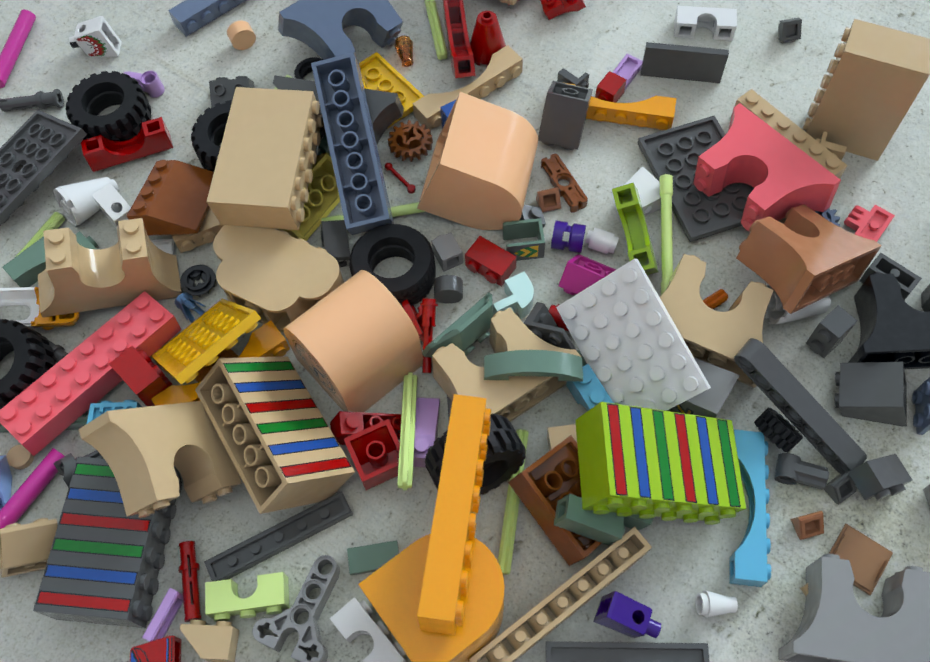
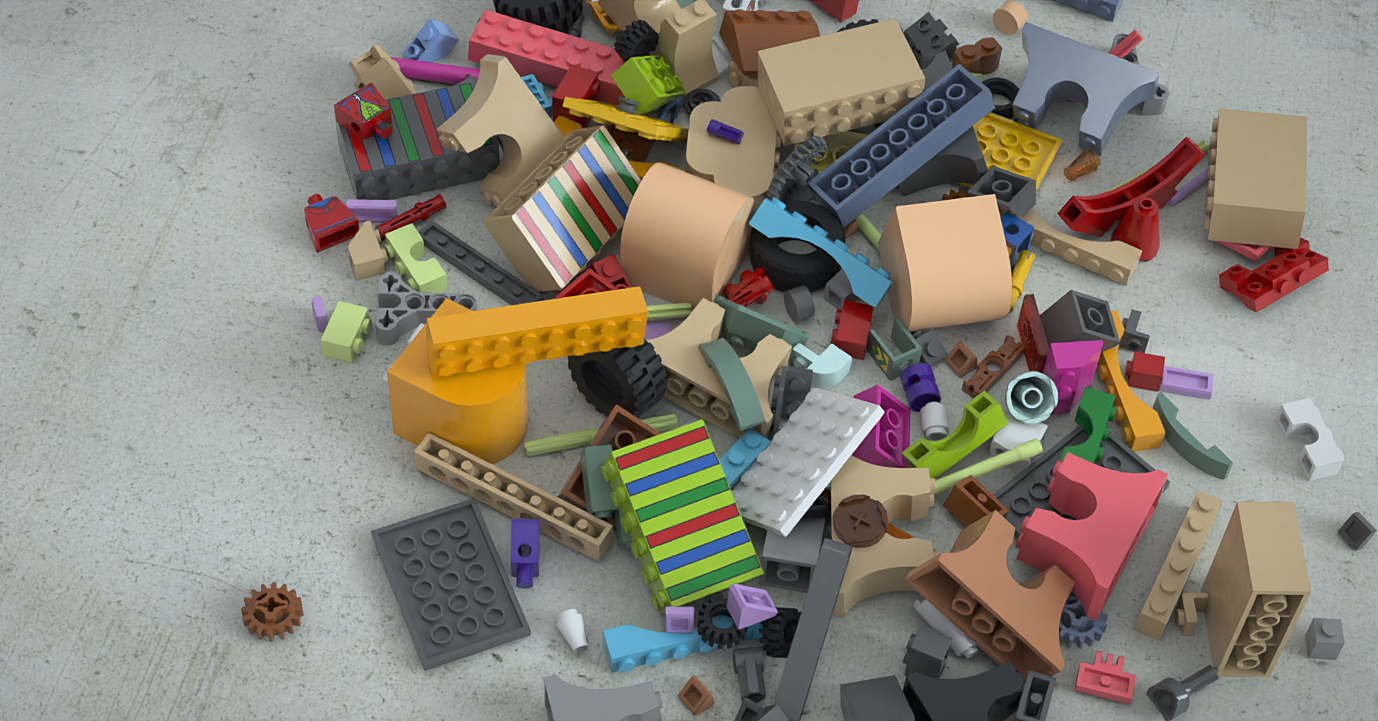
camera: 60 degrees right, 10 degrees down
(19, 457) = (460, 53): tan tile -> none
(61, 579) = (365, 113): none -> red torso
(120, 299) = (636, 40): none -> black tyre
(167, 309) = (648, 82): none -> lime slope
(187, 334) = (627, 105): none -> dark grey bush
(260, 268) = (724, 131): none -> dark purple piece
(267, 68) = (979, 58): none -> dark orange brick
(333, 229) = (796, 168): none -> dark grey gear
(424, 98) = (1012, 191): none -> dark grey slope
(462, 228) = (865, 281): none -> medium azure arch
(568, 143) = (1032, 334): none -> clear red tile
(611, 133) = (1071, 369): none -> dark pink slope
(615, 165) = (1031, 396): none -> light aqua cone
(646, 133) = (1092, 415): none -> green arch
(684, 62) = (1223, 424): dark grey tile -> none
(684, 92) = (1186, 445): none -> sand green slope
(703, 241) = (972, 501): none -> dark orange brick
(715, 324) = (860, 521): none -> reddish brown tile
(753, 507) = (679, 620): none -> lavender tile
(771, 444) = (749, 605): none -> lavender slope
(776, 466) = (711, 632): none -> black tyre
(899, 189) = (1173, 696): none -> dark grey piece

